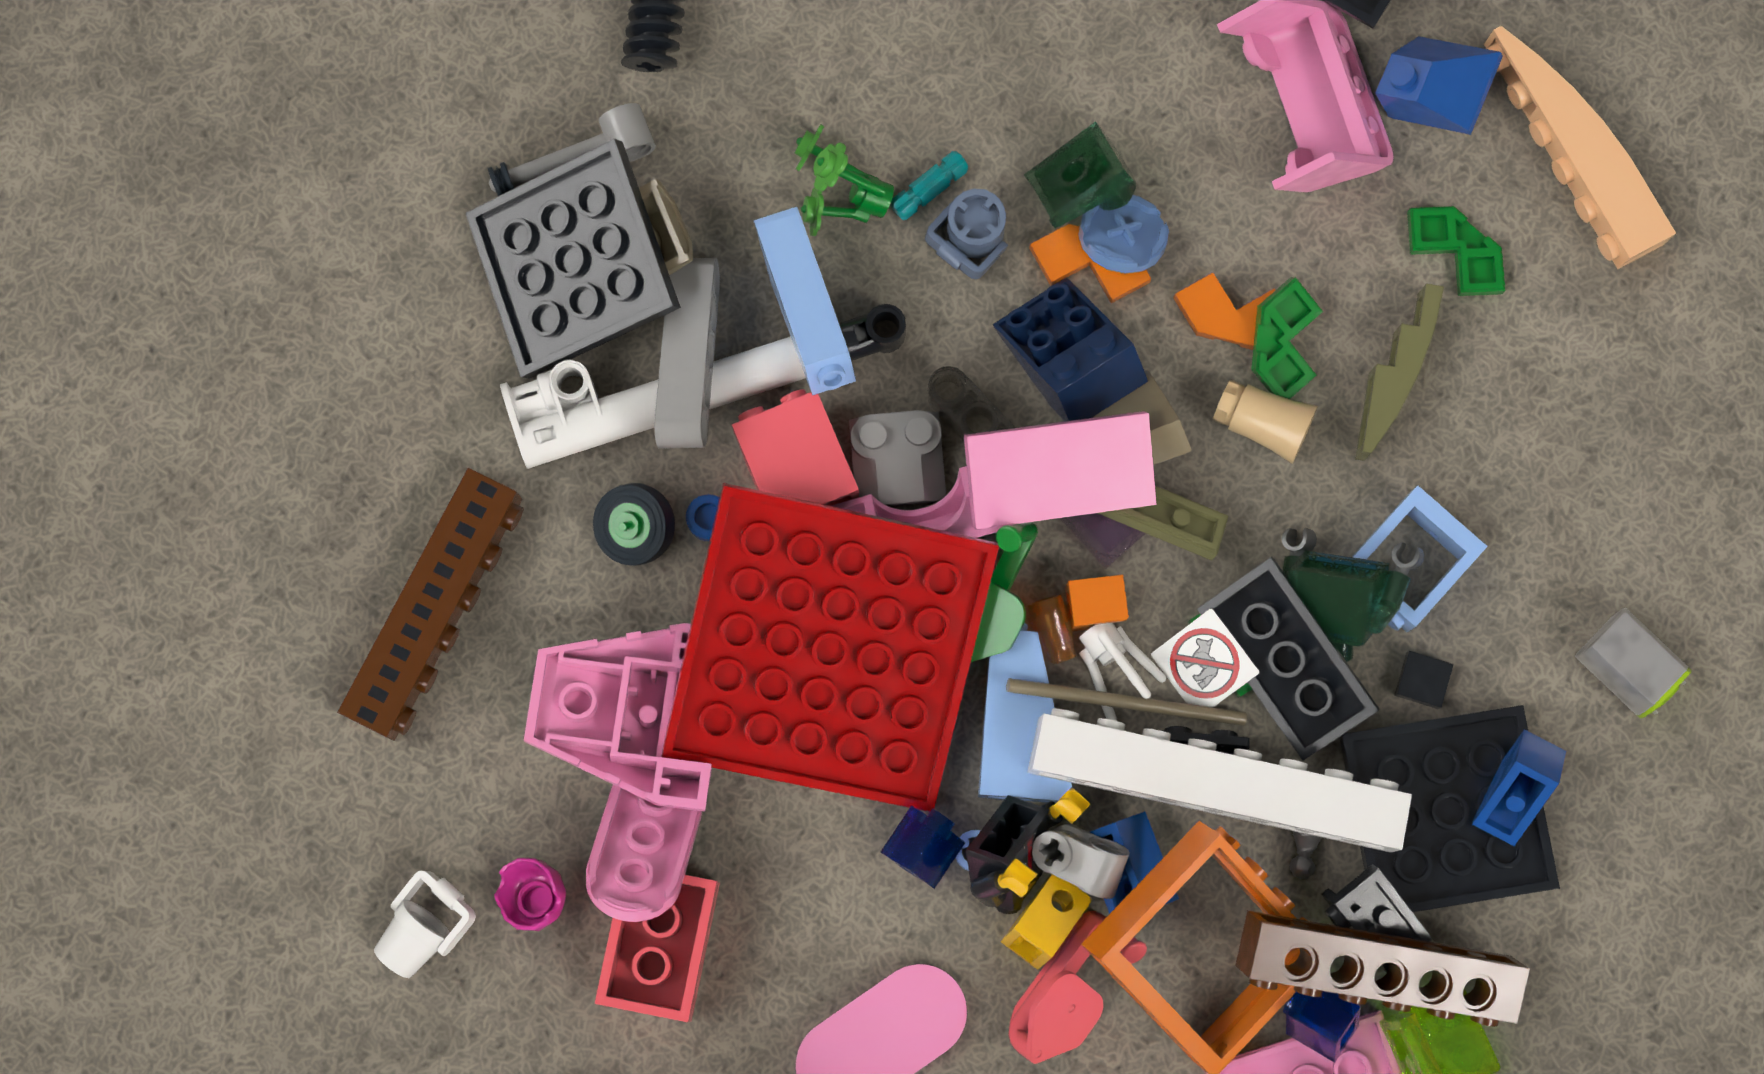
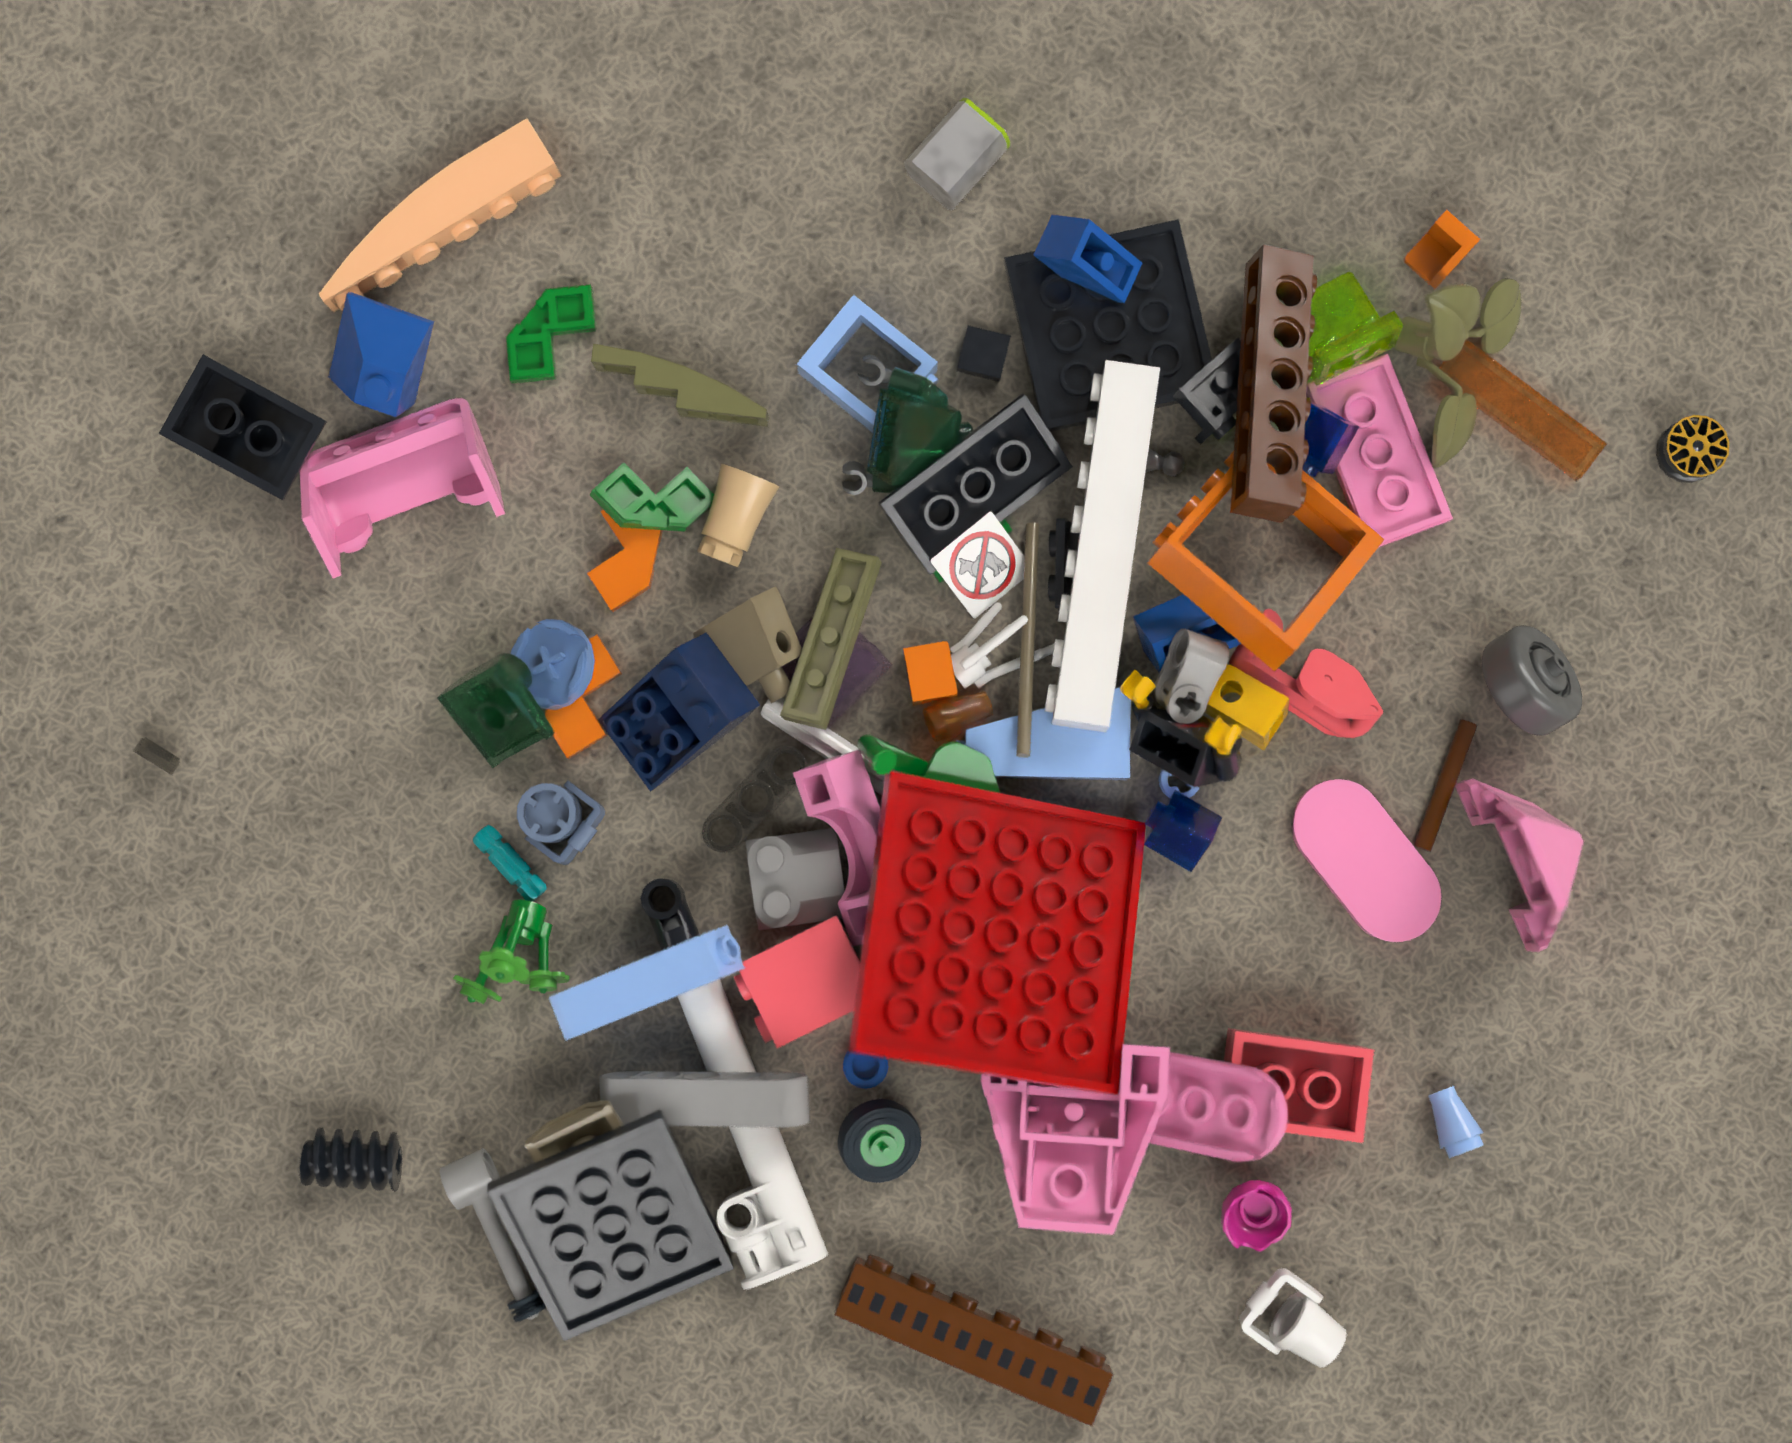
camera: 90 degrees left, 5 degrees up
(1060, 469) = (809, 714): bright pink tile -> none

